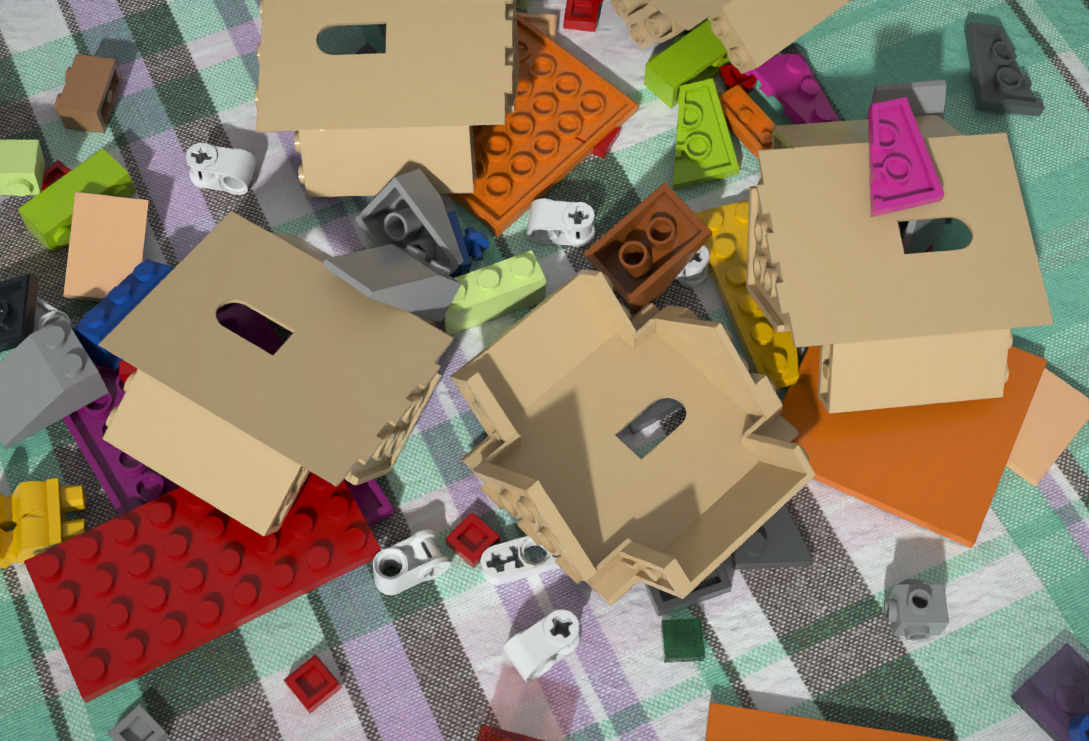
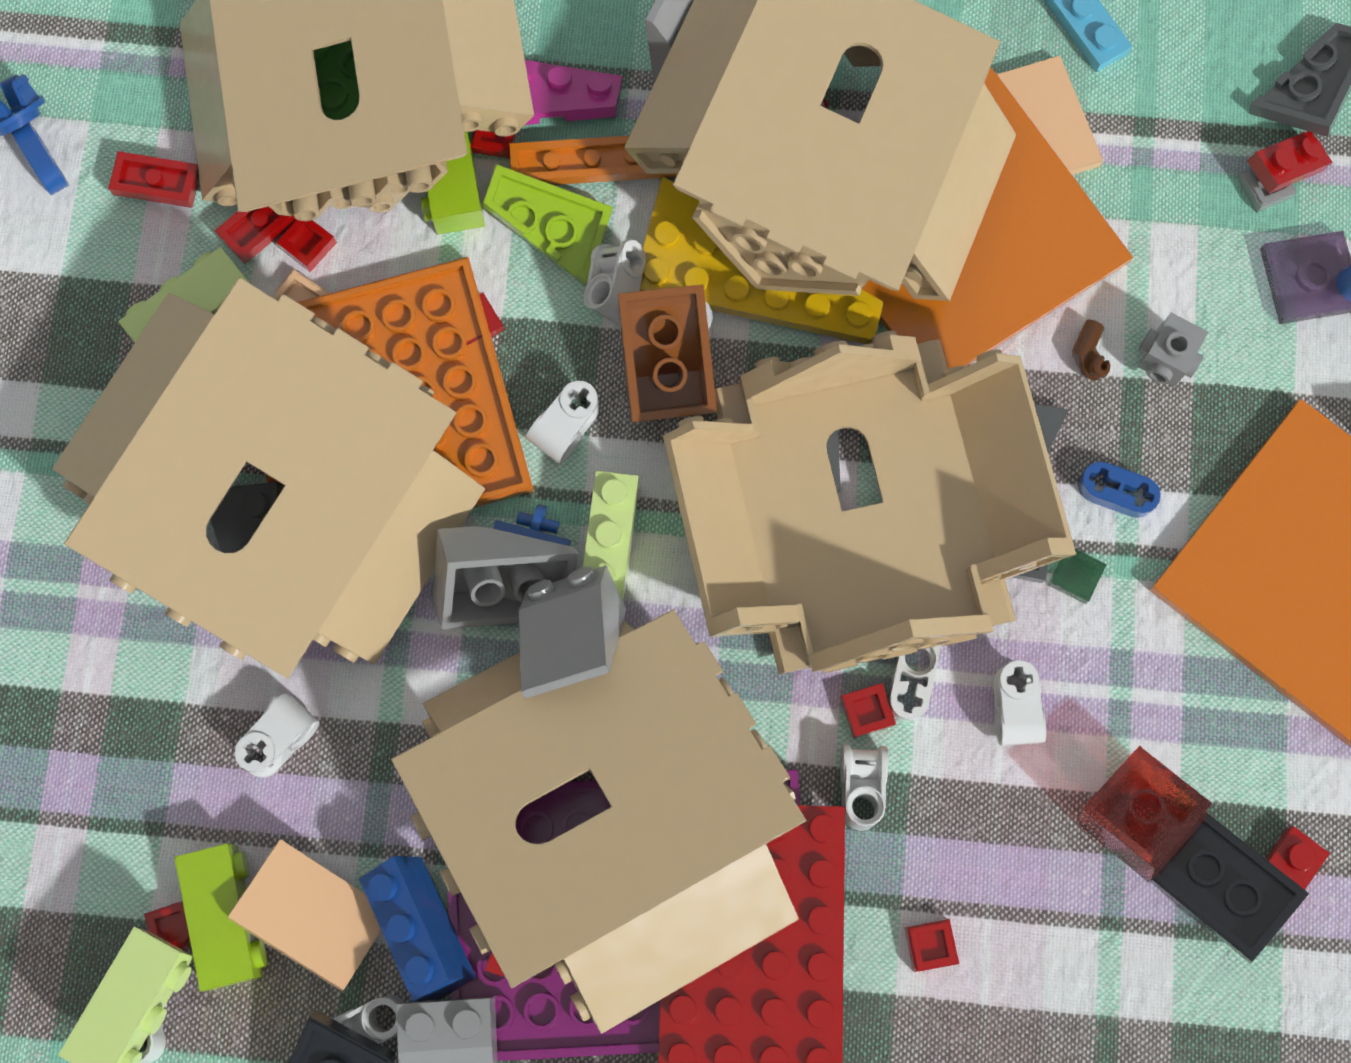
camera: 60 degrees left, 15 degrees up
(89, 93) = (73, 836): medium nougat brick -> none
(695, 191) = (613, 276): none -> white piece
(783, 633) = (1122, 481): none -> blue beam
(869, 552) = (1085, 353): none -> reddish brown arm
(898, 160) = (766, 59): dark pink wing -> none

